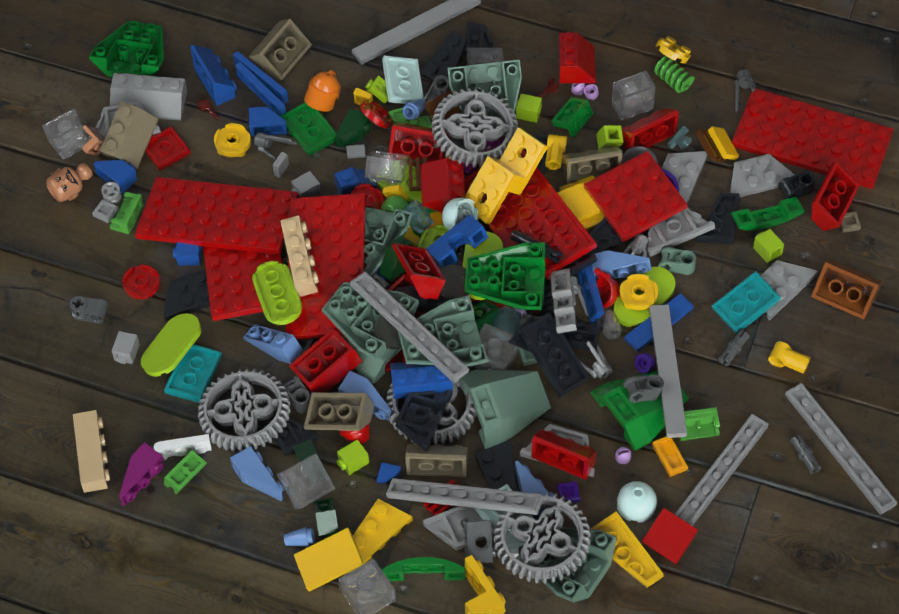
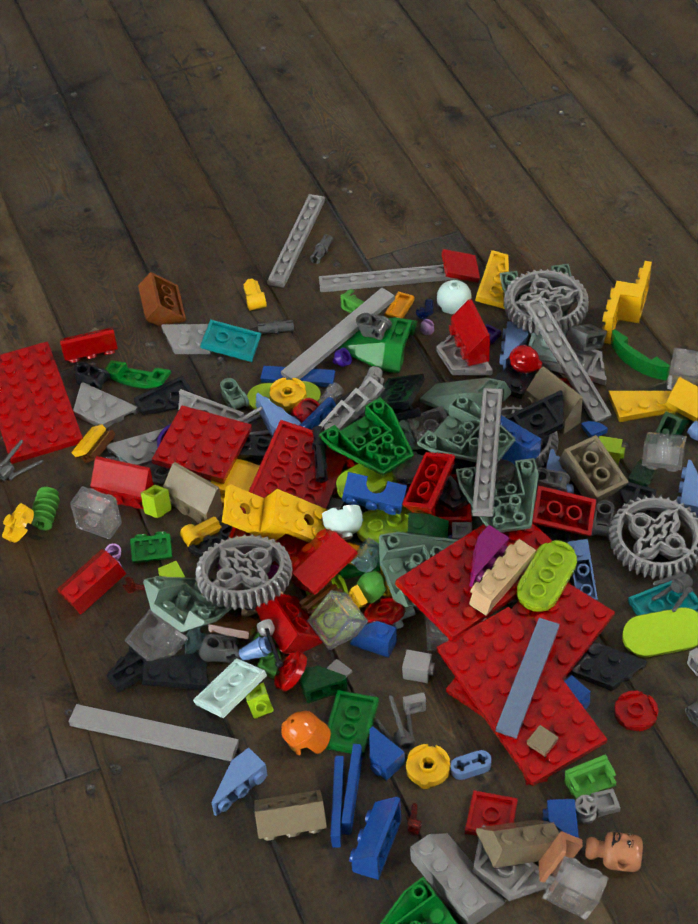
camera: 130 degrees left, 10 degrees down
(170, 193) = (542, 740): none -> dark tan tile
(190, 380) = (680, 584): none -> dark grey plant
(210, 164) = (470, 765): none -> medium blue beam
(217, 217) = (527, 678): none -> sand blue tile
(331, 266) = (487, 549): none -> magenta slope
(332, 42) = (241, 776): none -> medium blue slope
(352, 373) = (551, 479): none -> dark grey piece
(360, 95) = (280, 701): yellow tile -> none
(420, 120) = (266, 629): none -> hinge
(500, 475) = (525, 359): none -> red hat
(641, 469) = (425, 312): none -> clear blue arm
(768, 245) = (166, 357): lime brick -> none

